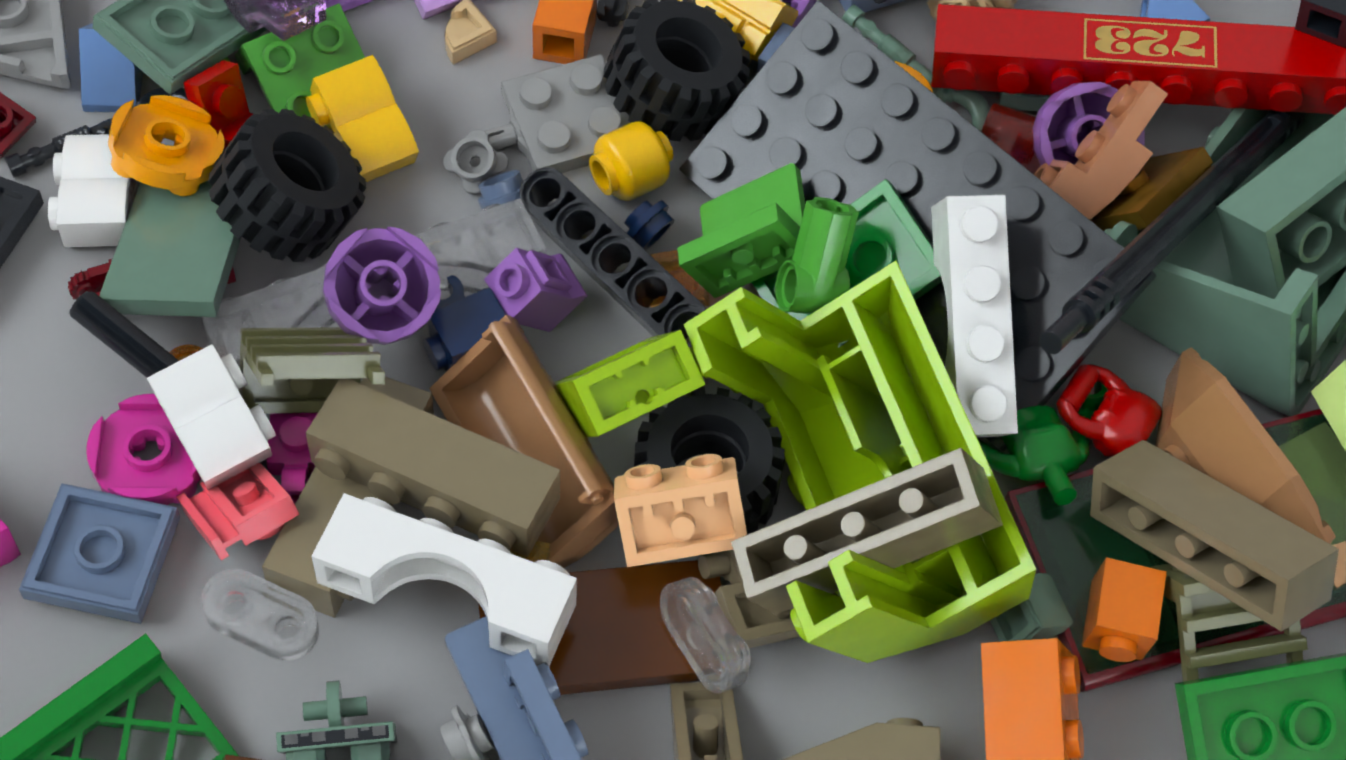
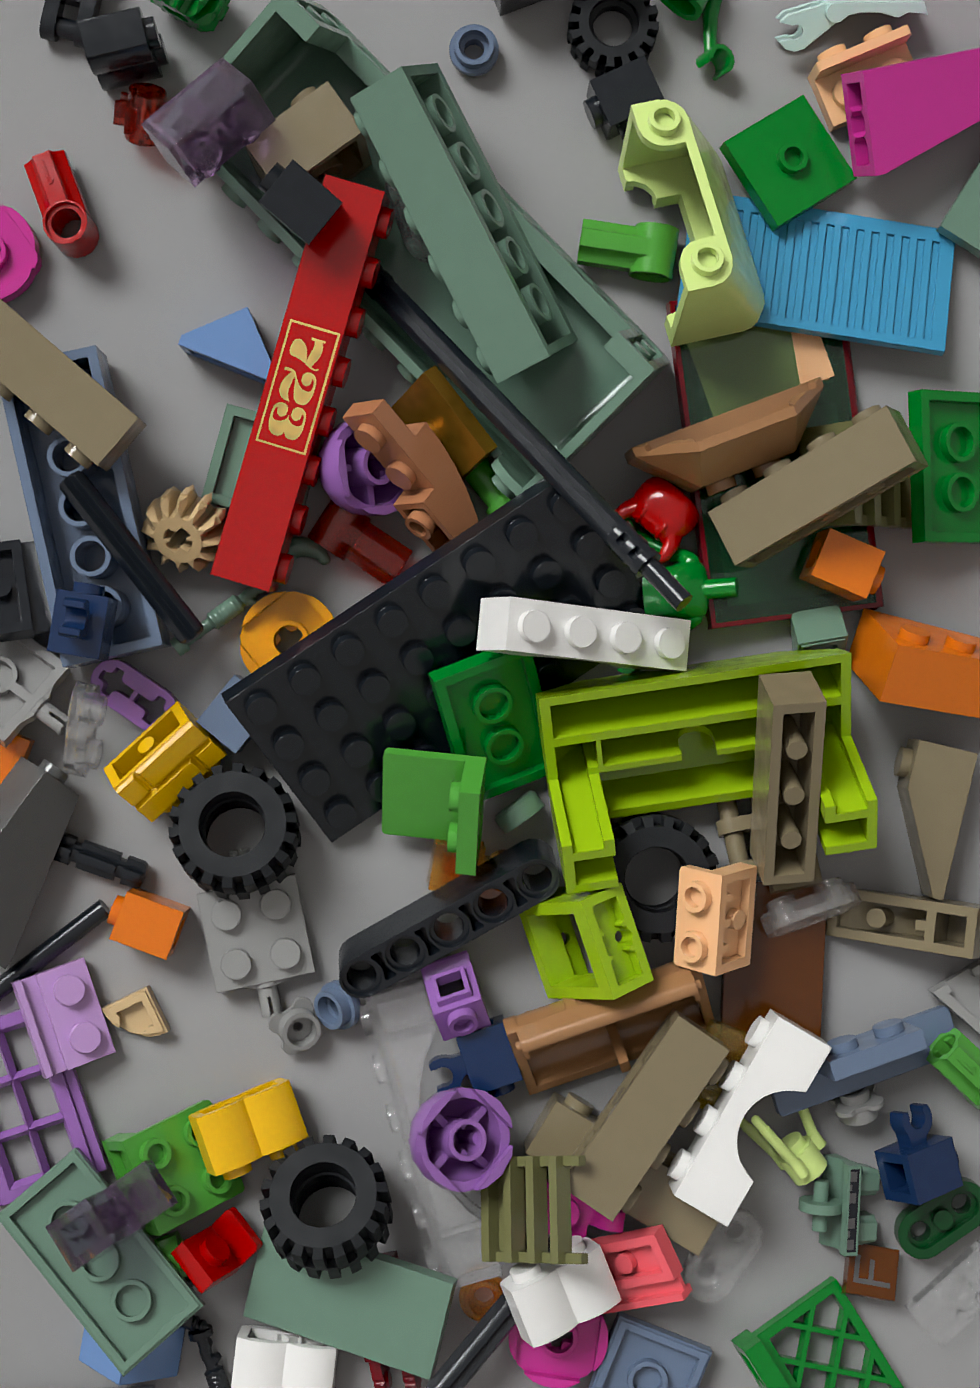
camera: 75 degrees left, 30 degrees up
(138, 150) = (235, 1321): light orange plate -> none
(394, 678) = (793, 1153): none -> yellowish green plant
(631, 161) = (325, 887): yellow head -> none
(649, 223) = (392, 882): dark blue plate -> none
(819, 258) = (505, 756): bright green piece -> none

